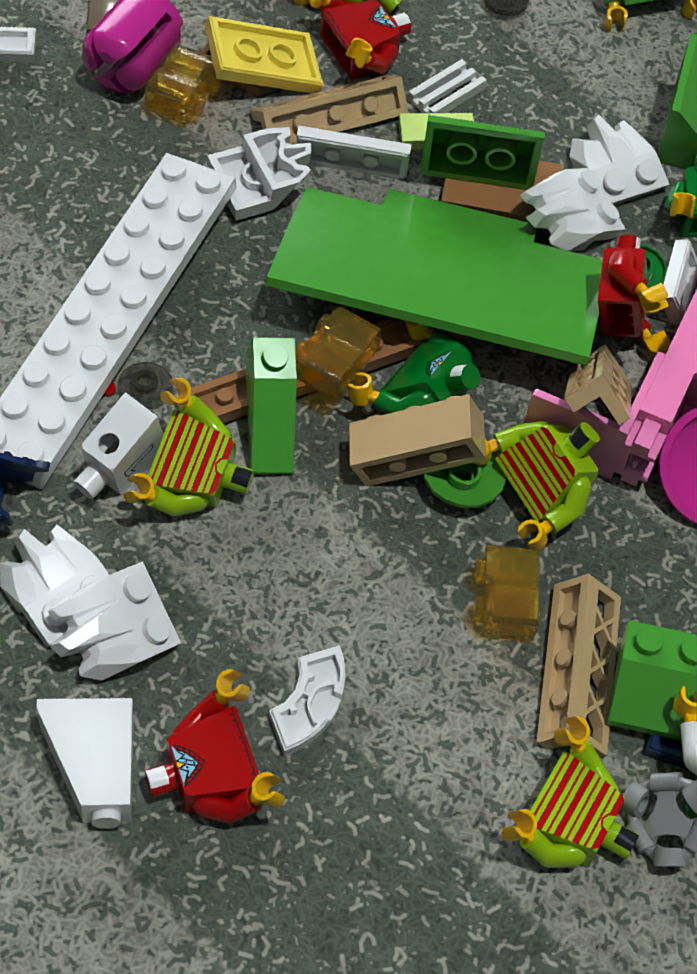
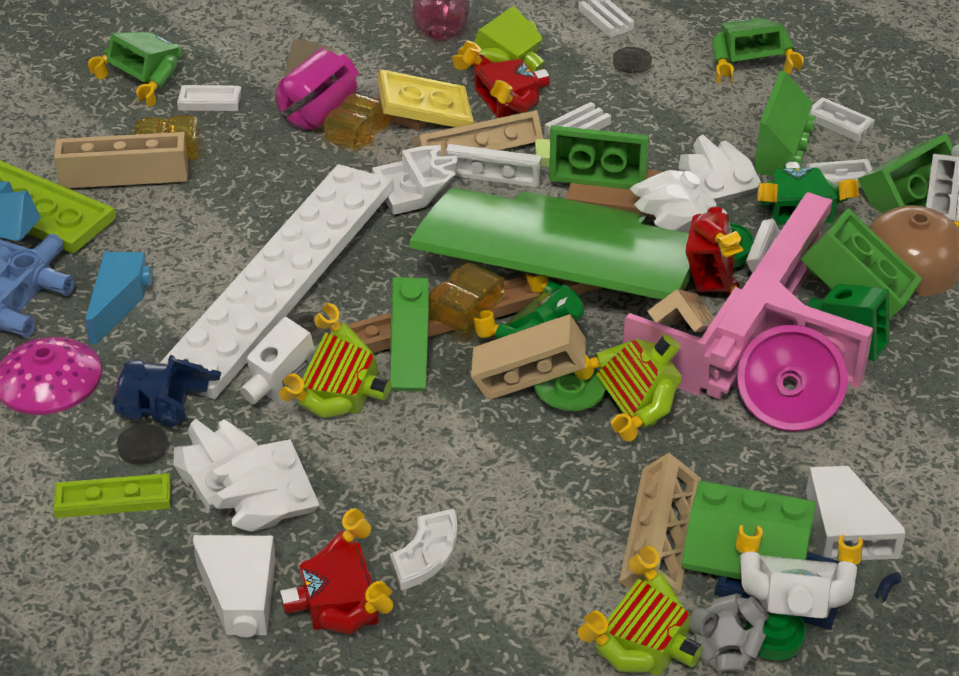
camera: 10 degrees right, 15 degrees down
(508, 593) = (600, 472): clear yellow brick -> none

